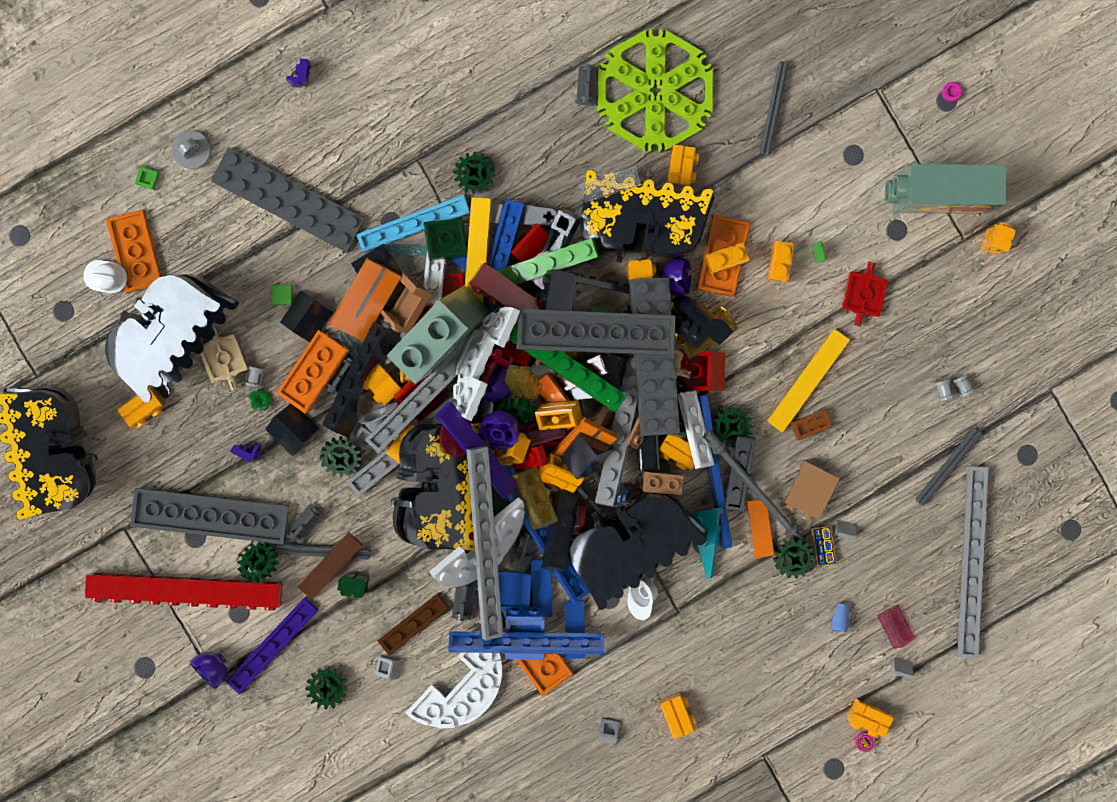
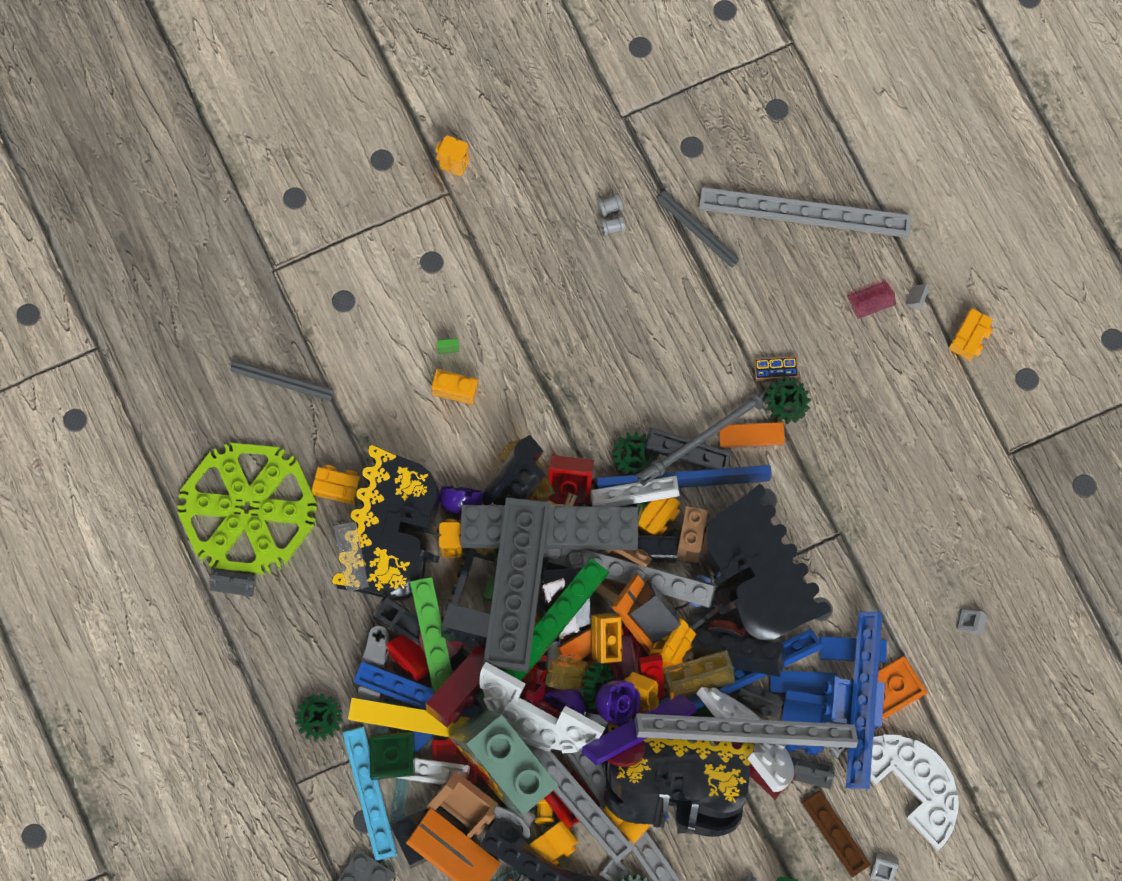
camera: 90 degrees left, 15 degrees down
(376, 416) = (591, 853): light grey piece -> none
(641, 598) = (823, 570): white piece -> none
(677, 716) = (957, 542): light orange brick -> none
(710, 521) = (739, 486): teal wing -> none
(723, 234) = (442, 449): orange tile -> none
(726, 258) = (445, 443): light orange brick -> none
(808, 380) = (590, 370): yellow tile -> none
(810, 491) = (714, 376): medium nougat panel -> none
(811, 424) = (639, 370): dark orange plate -> none
(841, 618) = (859, 356): medium blue cone -> none
(845, 530) = (760, 343): light grey slope -> none
(864, 294) = (499, 301): red plate -> none
(864, 742) = (998, 343): tile -> none
(947, 189) = (394, 201): sand green brick -> none
(951, 92) = (285, 191): dark pink tile -> none

